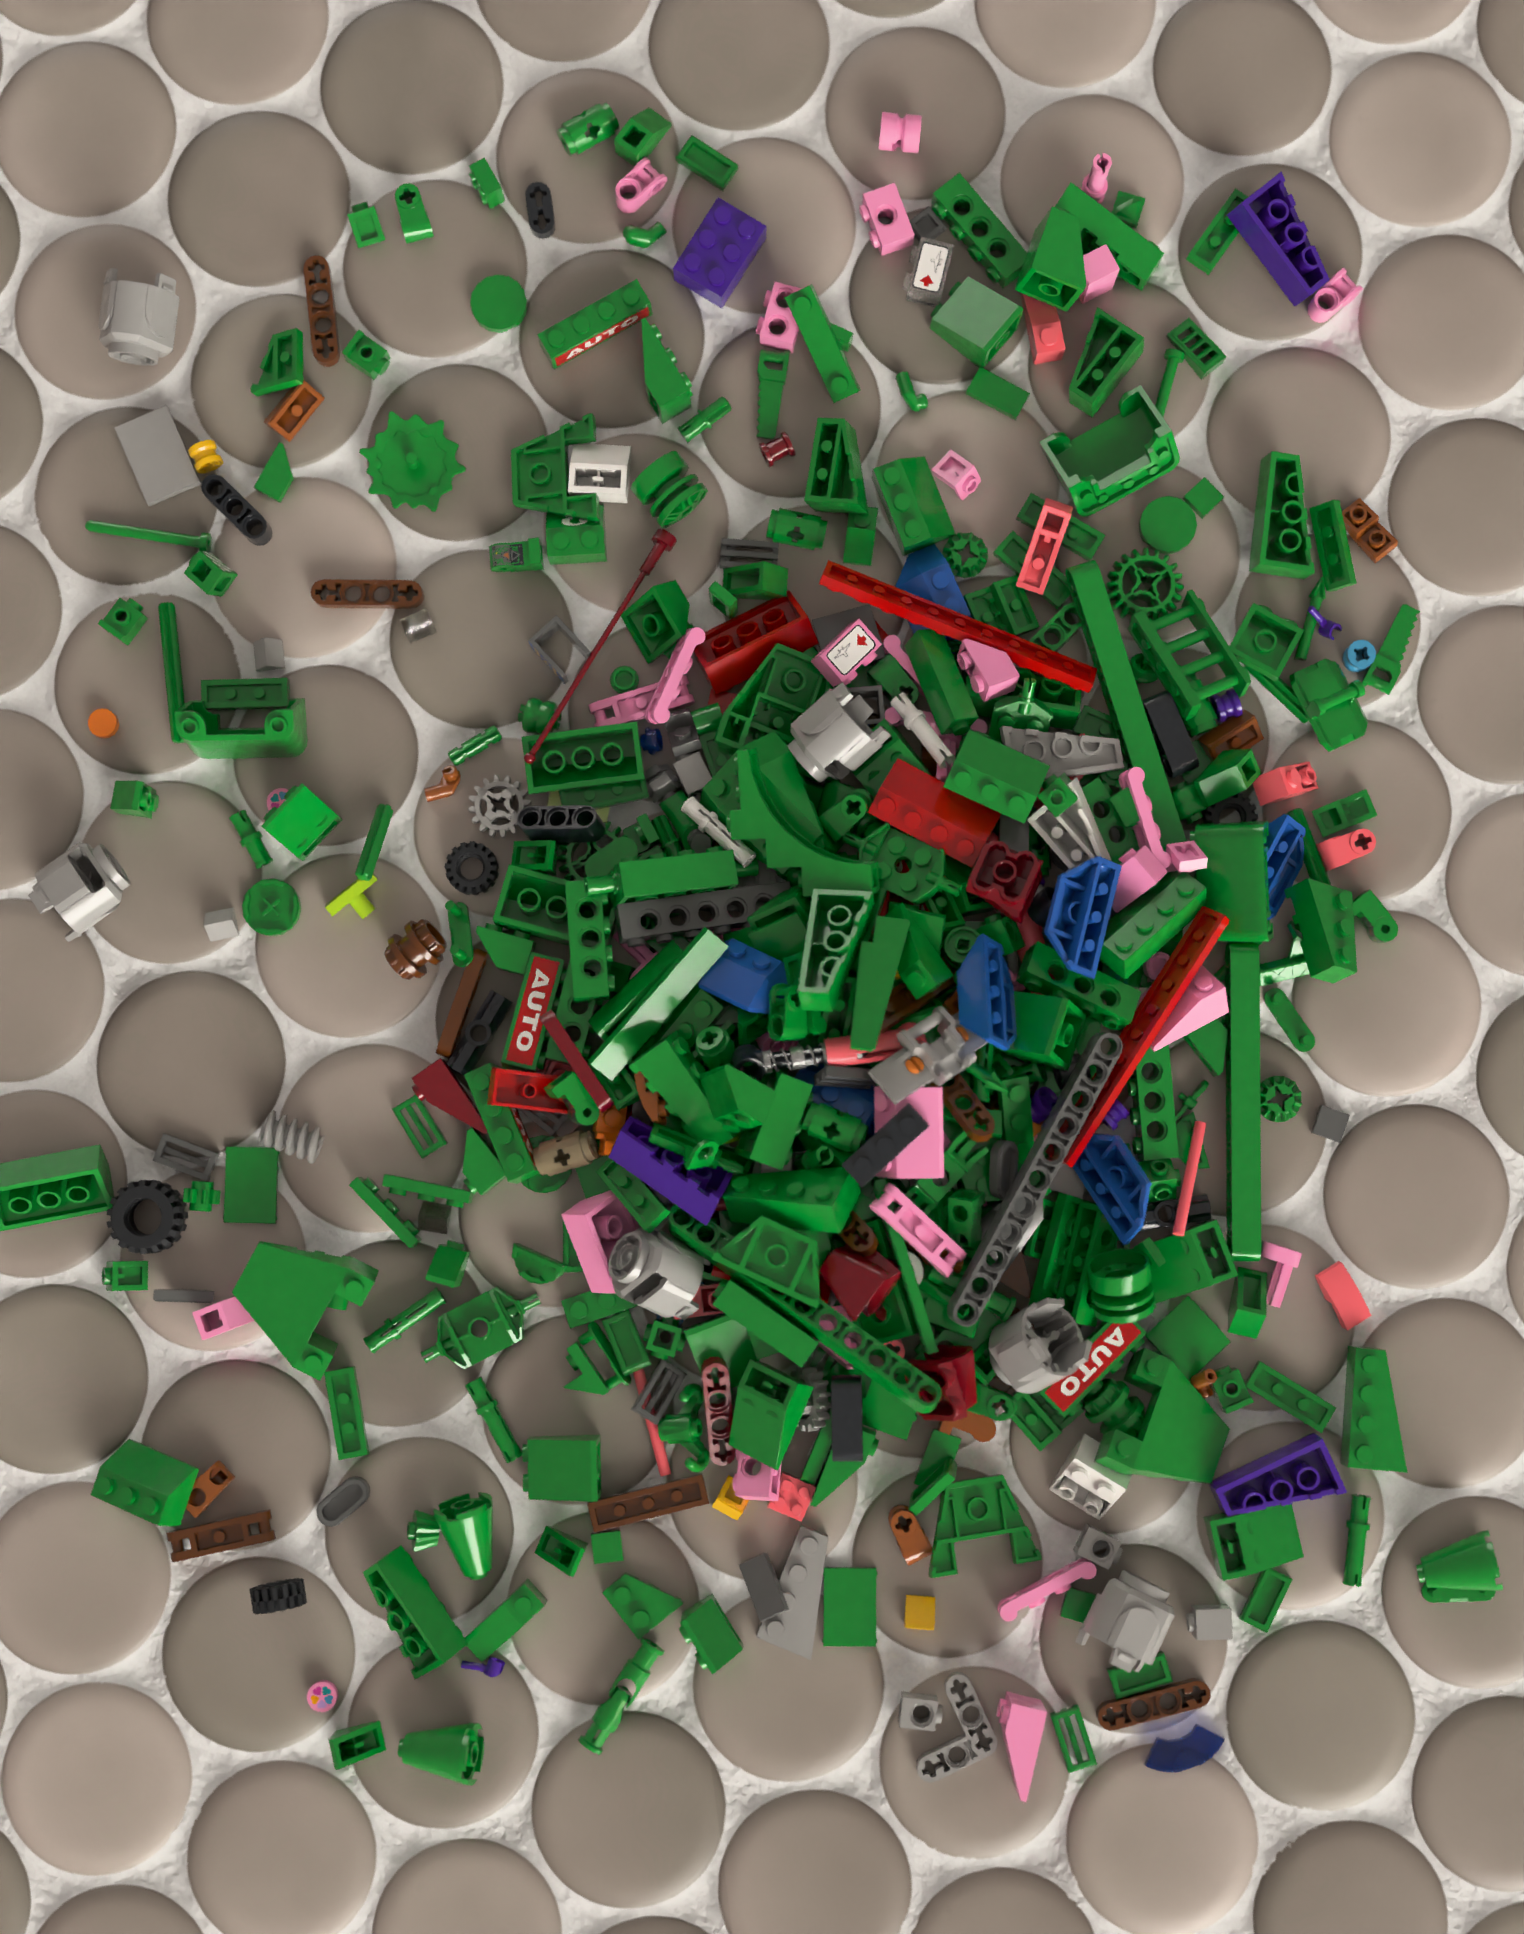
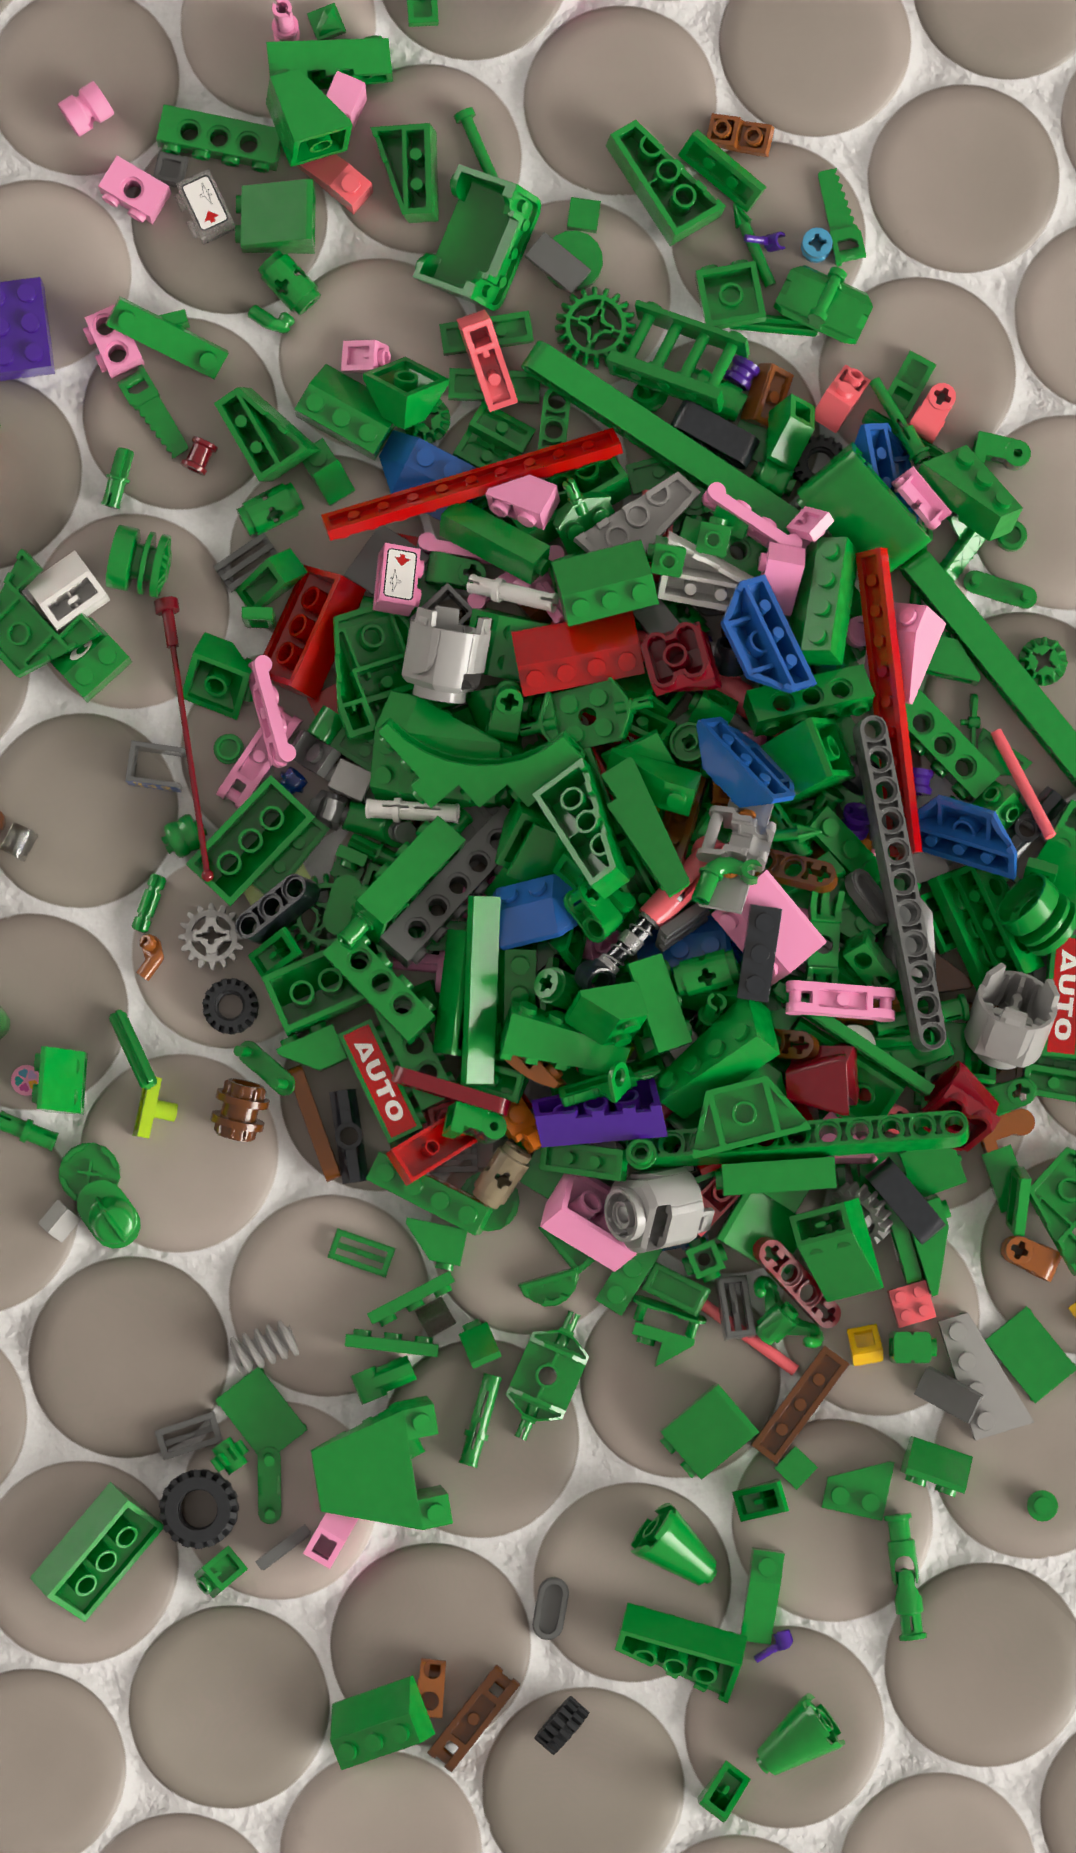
camera: 45 degrees left, 0 degrees up
(214, 1241) = (269, 1485): none -> green piece
(260, 948) = (108, 1214): none -> green piece
(322, 1696) = (663, 1778): bright pink tile -> none
(346, 1413) = (494, 1534): green plate -> none
(352, 1230) = (379, 1380): none -> green piece
(422, 1531) = (636, 1577): green piece -> none
(445, 1092) = (360, 1207): dark red slope -> none
(495, 1422) = (619, 1440): green pin -> none
(517, 556) = (54, 718): green leg -> none
(665, 387) = (64, 477): green slope -> none
(679, 1214) = (641, 1145): none -> green plate
(755, 1487) = (880, 1315): bright pink brick -> none
(764, 1529) = (911, 1347): none -> green brick
(766, 1727) = (1042, 1505): none -> green plate
(903, 1056) = (714, 871): none -> green piece
(941, 364) = (299, 290): none -> green piece
(965, 520) = (405, 391): none -> green slope
(997, 393) = (343, 262): green tile -> none
(1106, 808) = (714, 536): none -> green bracket
(1155, 517) = (557, 263): none -> dark grey tile
(1200, 368) = (496, 109): green slope -> none
(1285, 904) = (921, 498): none -> bright pink hinge
(1312, 862) = (914, 447): none -> green pin
(1328, 991) = (1014, 540): none -> green tile

